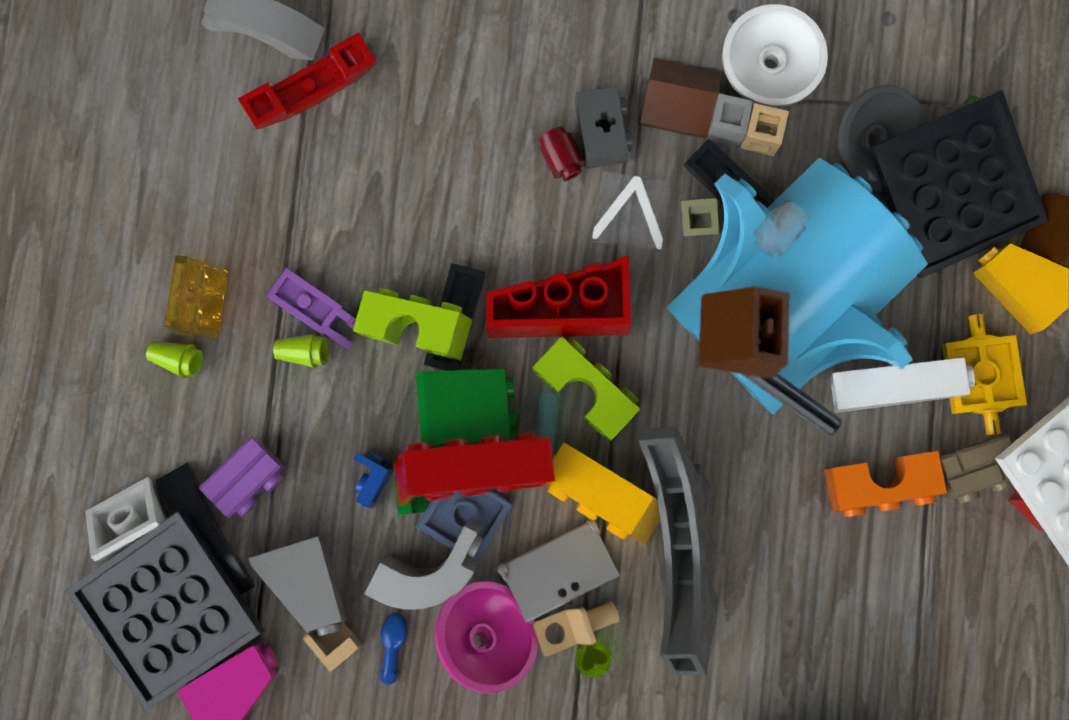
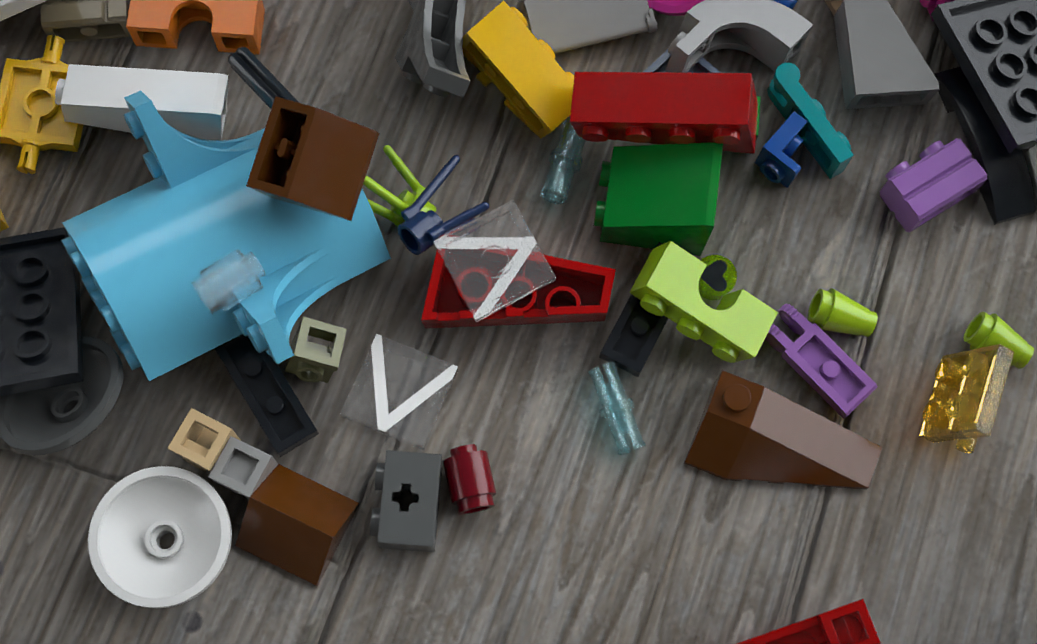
camera: 175 degrees left, 10 degrees down
(343, 239) = (769, 438): none -> reddish brown wedge
(354, 514) = (826, 145): none -> teal plate
(407, 359) = (717, 277): none -> tile
(463, 234) = (616, 408): none -> clear light blue pin
(567, 364) = (486, 162): lime arch -> none
(582, 309) = (494, 260): none -> clear tile
(643, 327) = (425, 227): none -> dark blue plant
(663, 354) = (404, 200): none -> lime plant

